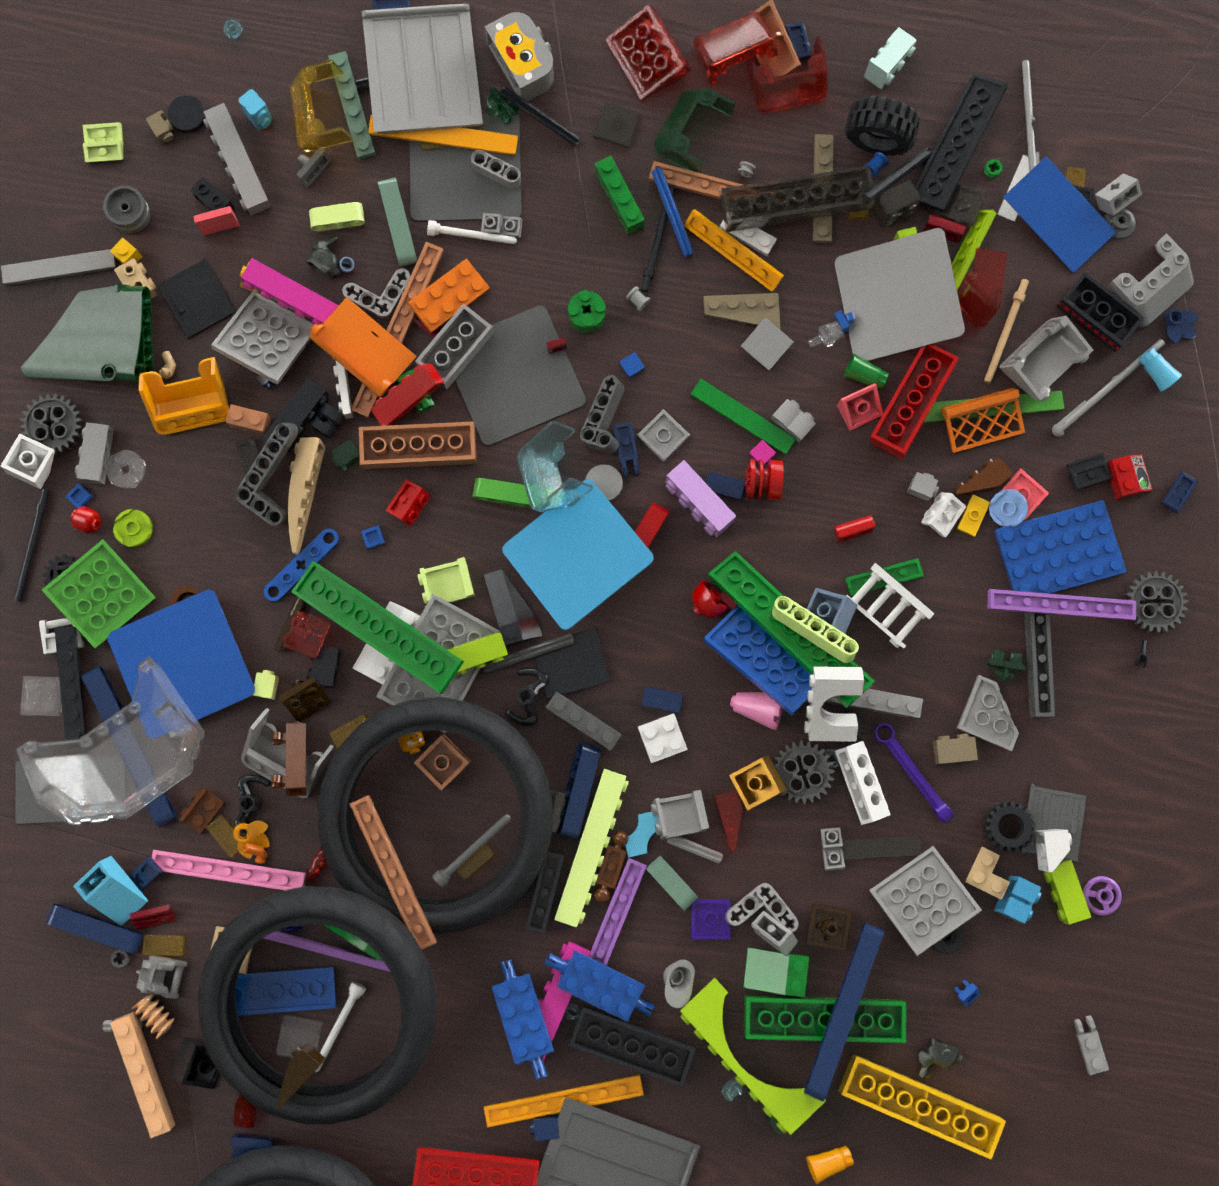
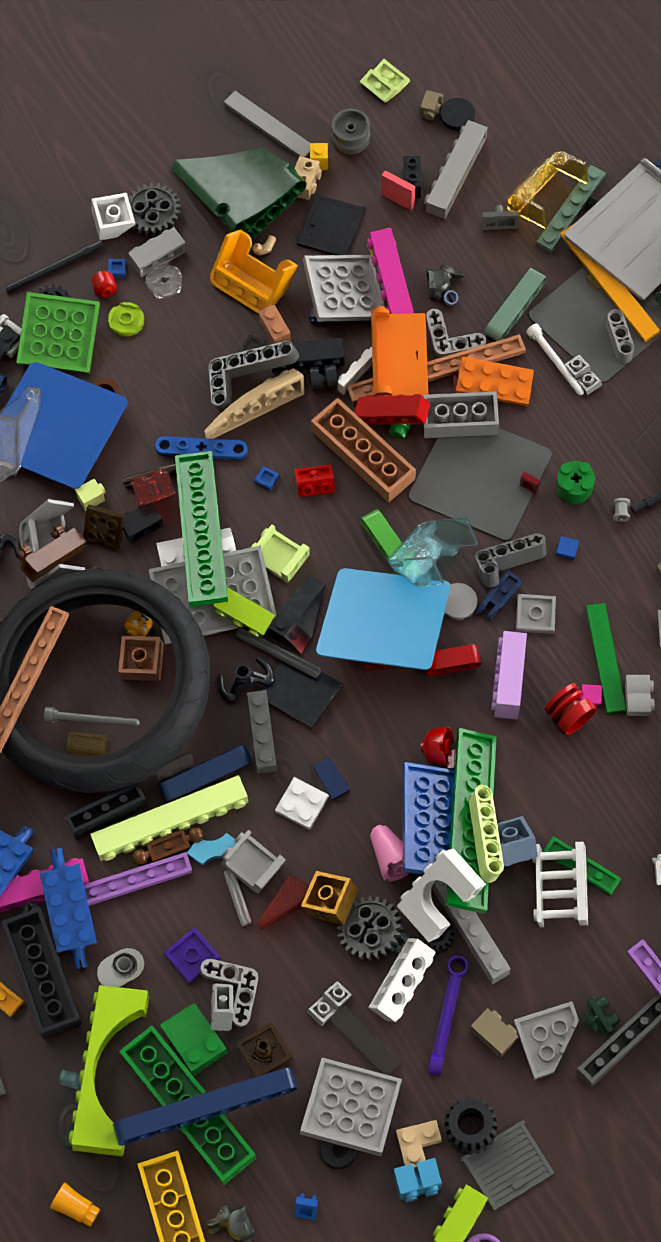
camera: 55 degrees right, 15 degrees down
(232, 24) = (547, 88): clear light blue plate -> none
(255, 109) = (502, 150): medium azure brick -> none
(336, 216) = (479, 263): yellowish green beam -> none
(345, 455) = (309, 408): clear green brick -> none
(672, 883) = (194, 900): sand green beam -> none
(725, 485) = (538, 687): dark blue tile -> none
(854, 528) = (597, 810): red brick -> none
(1051, 847) = (484, 1170): white slope -> none

